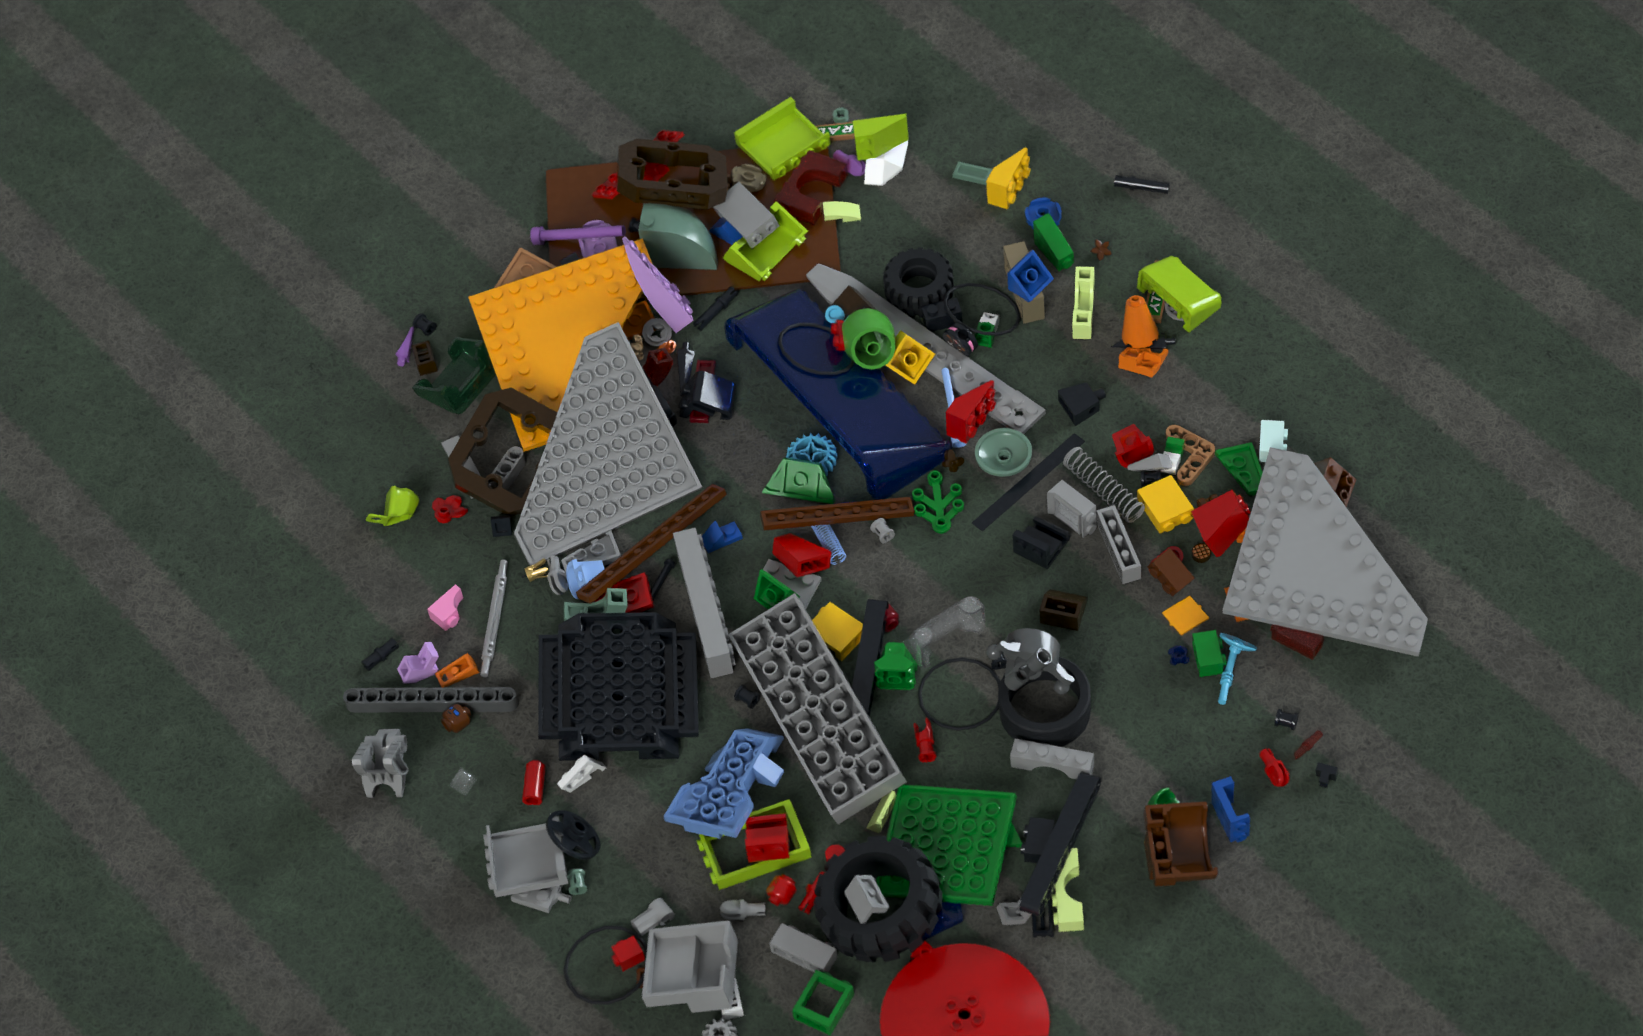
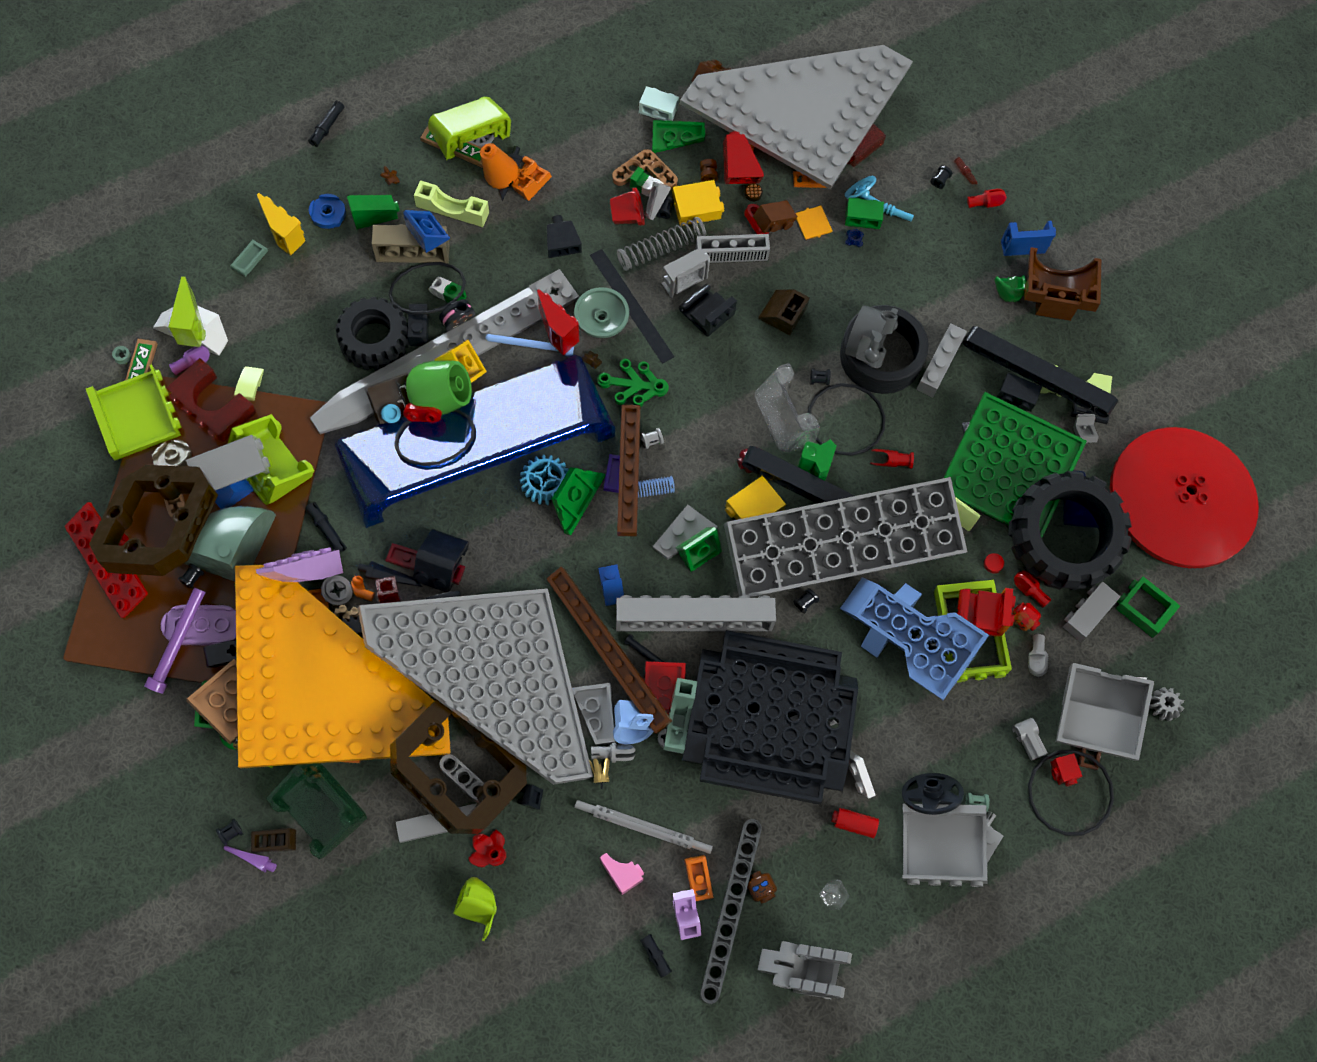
camera: 90 degrees left, 15 degrees up
(800, 555) = (661, 516): red slope -> none
(865, 897) = (1092, 532): light grey panel -> none
(1326, 773) = (1002, 164): black tile -> none

